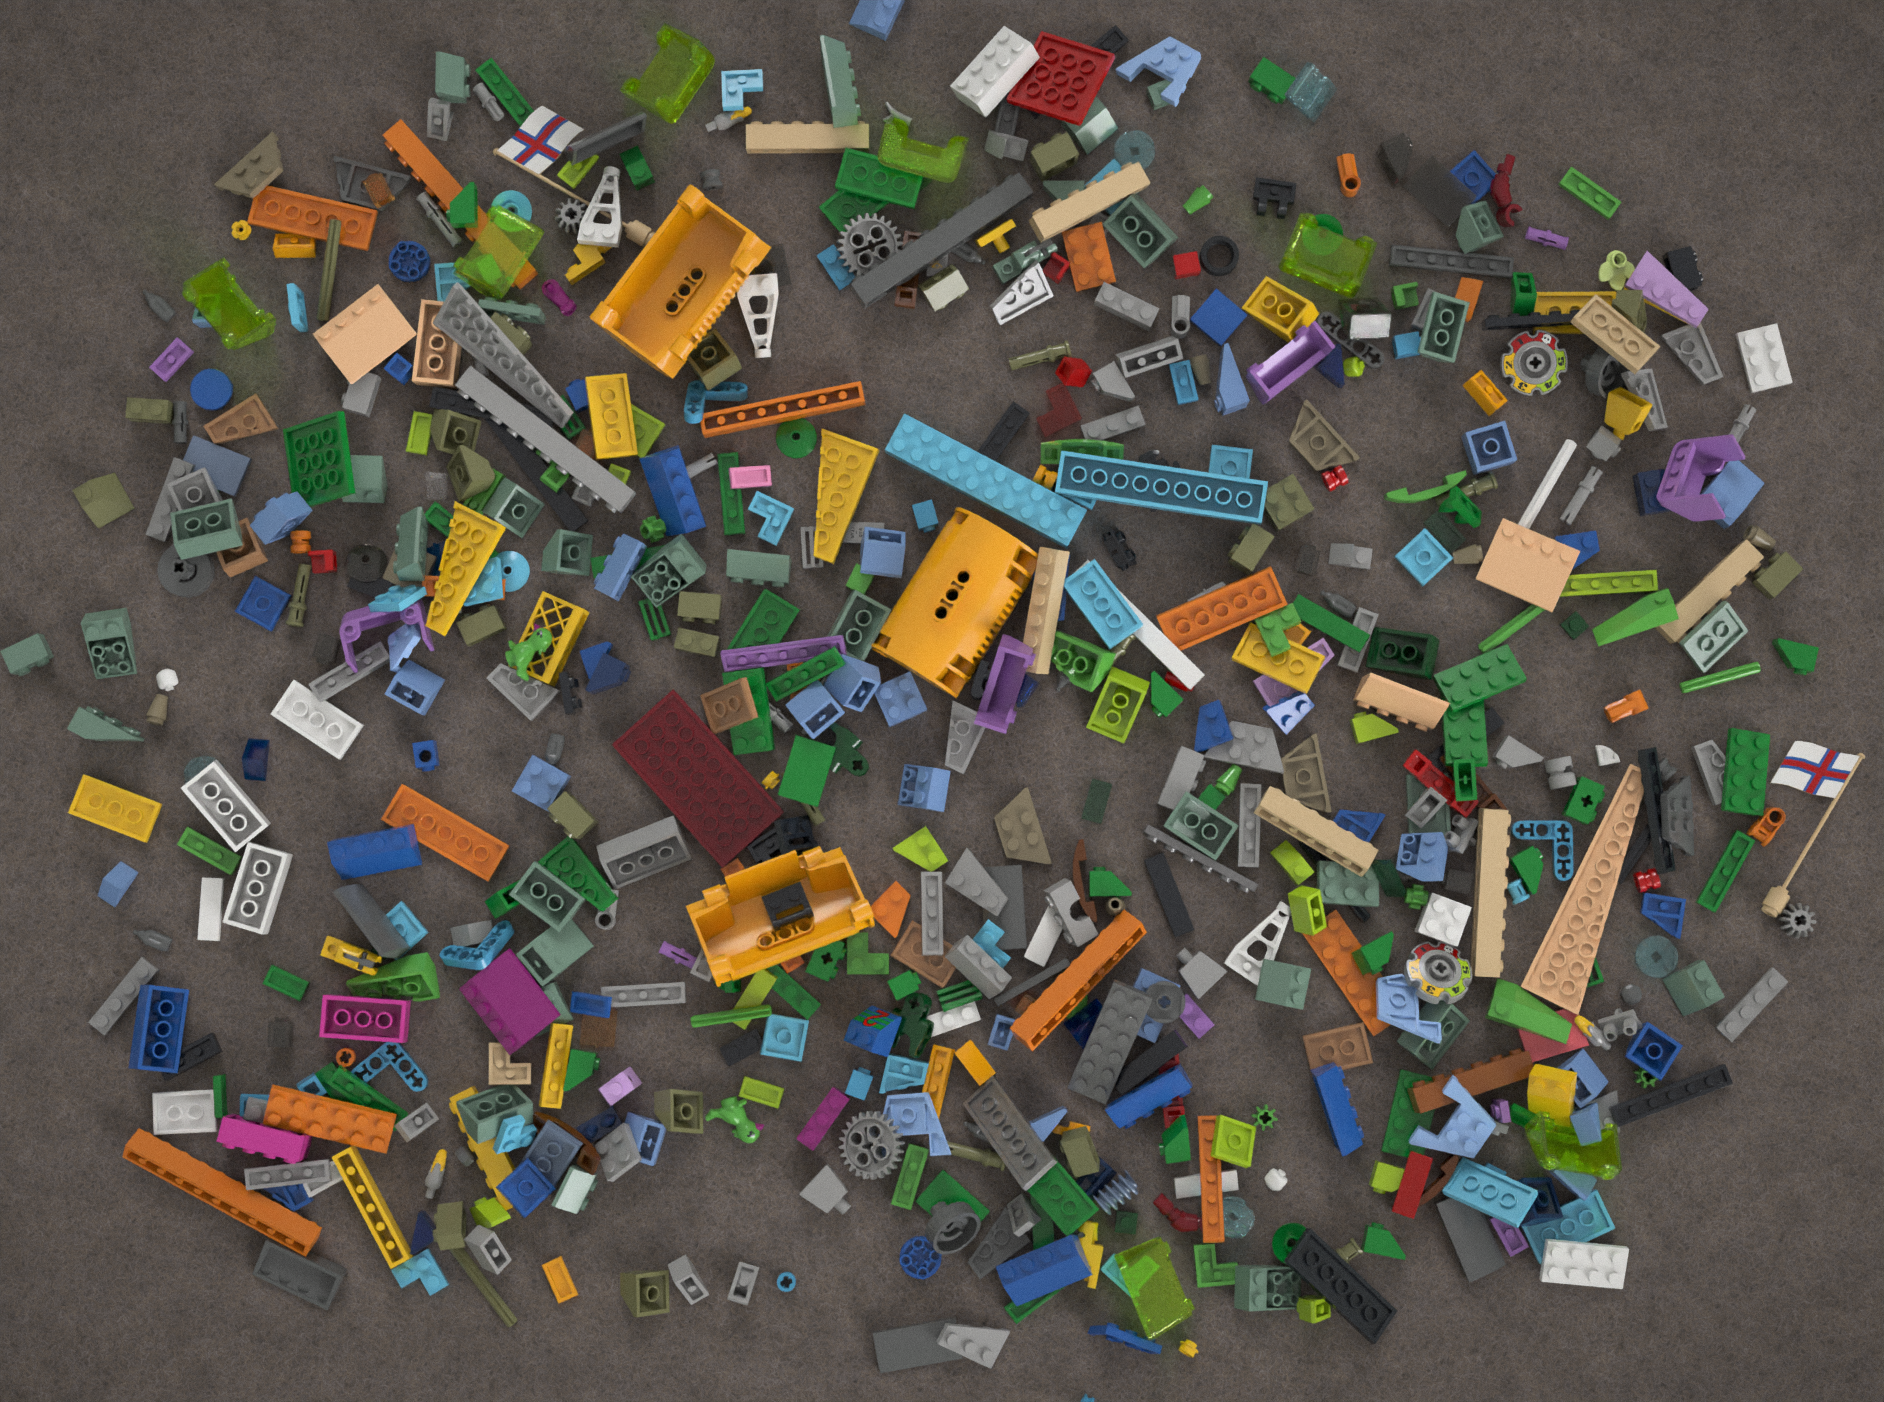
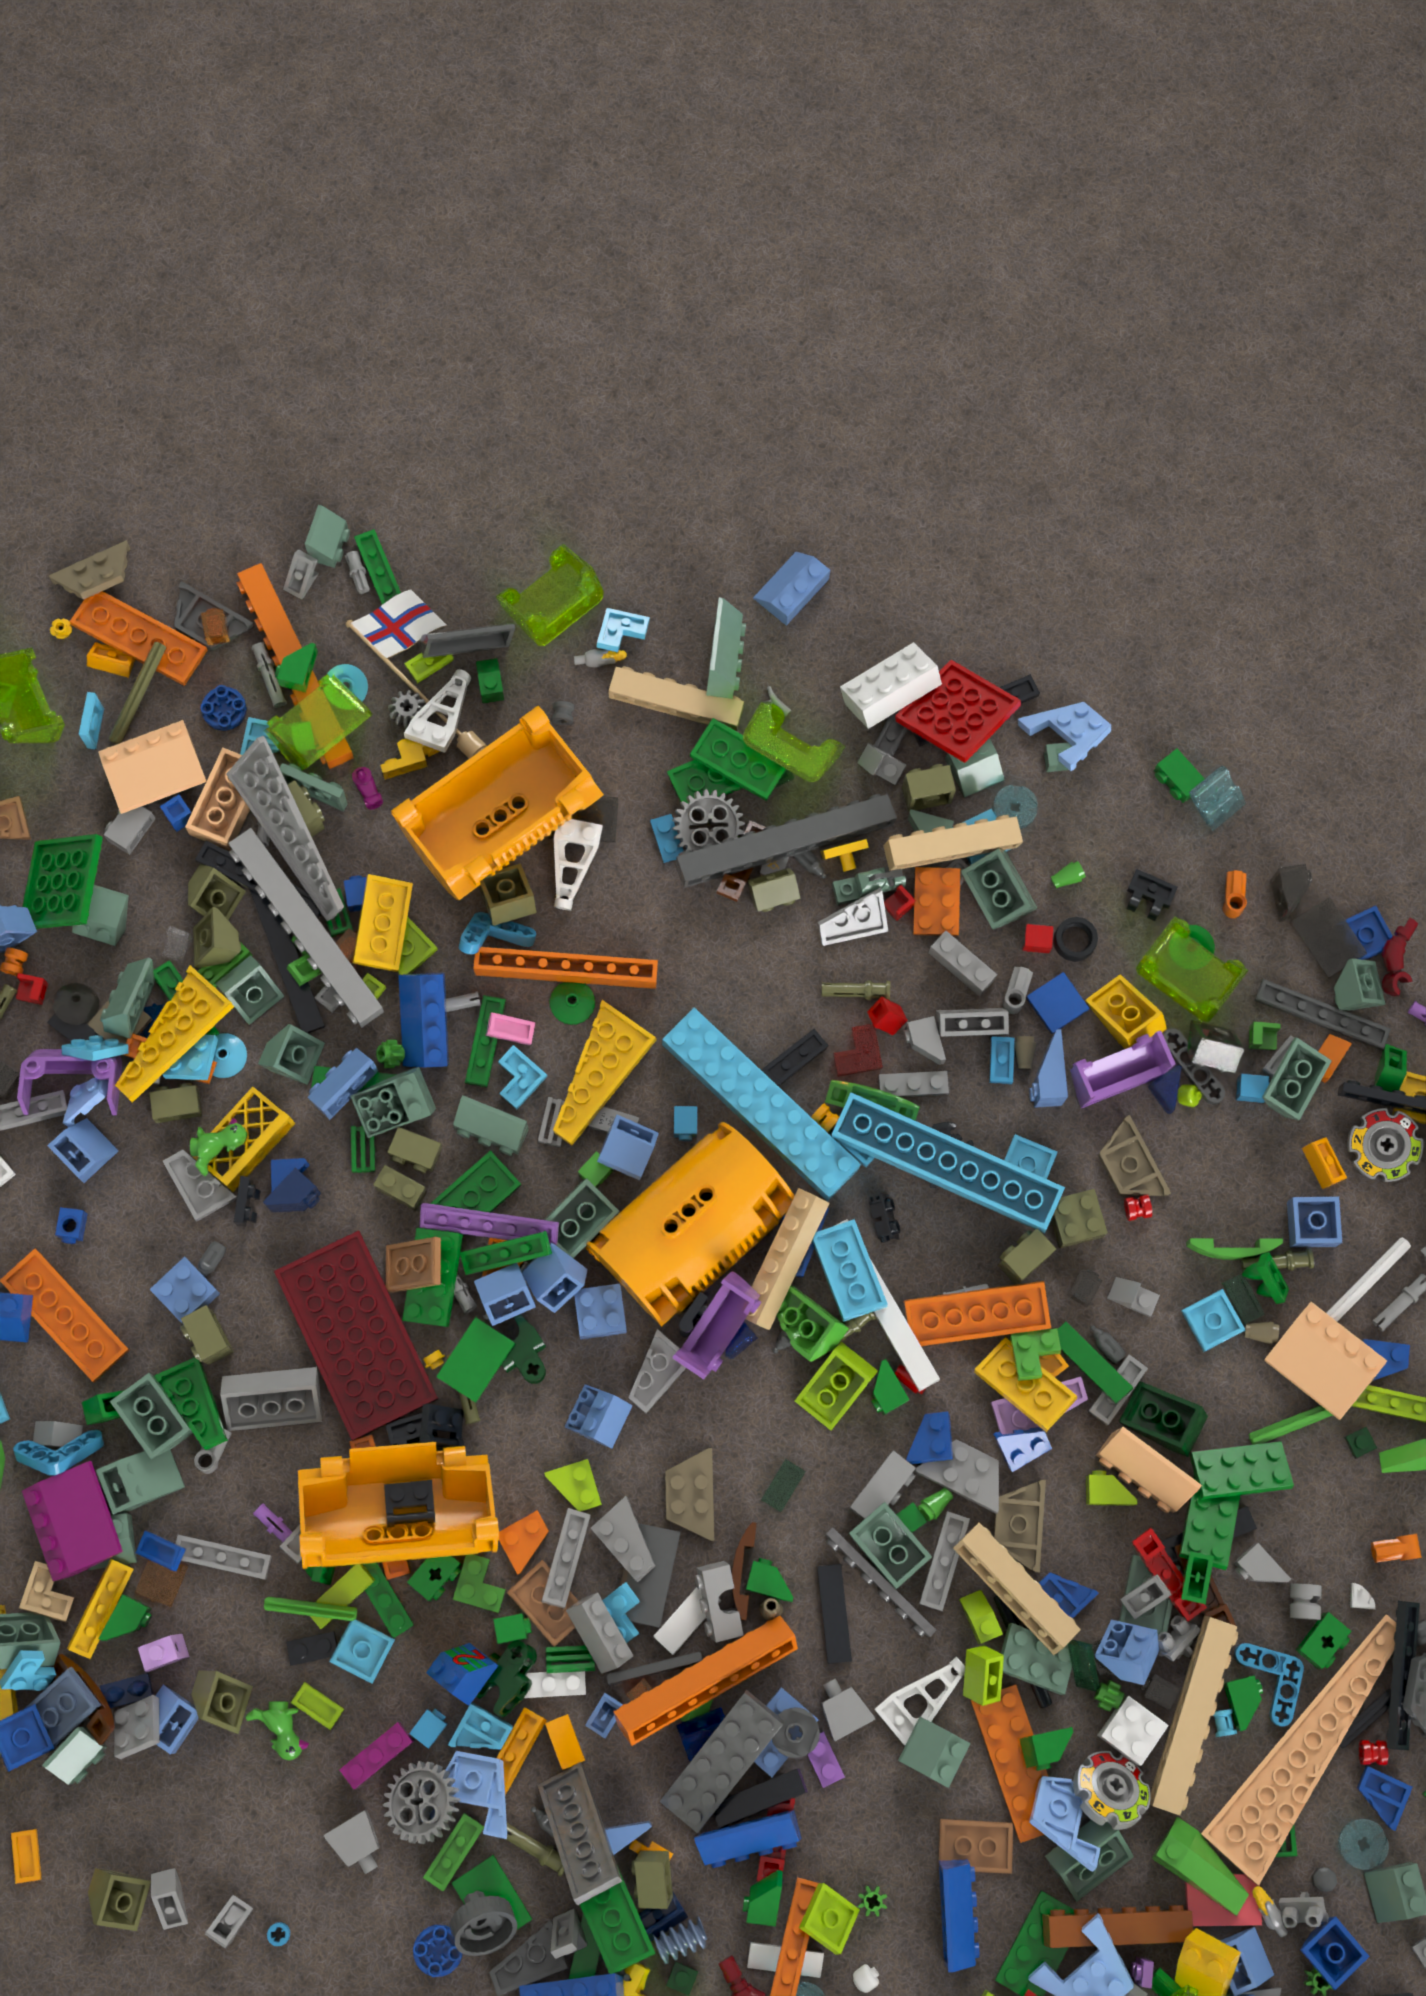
camera: 10 degrees right, 10 degrees down
(419, 433) = (176, 886): lime tile -> none

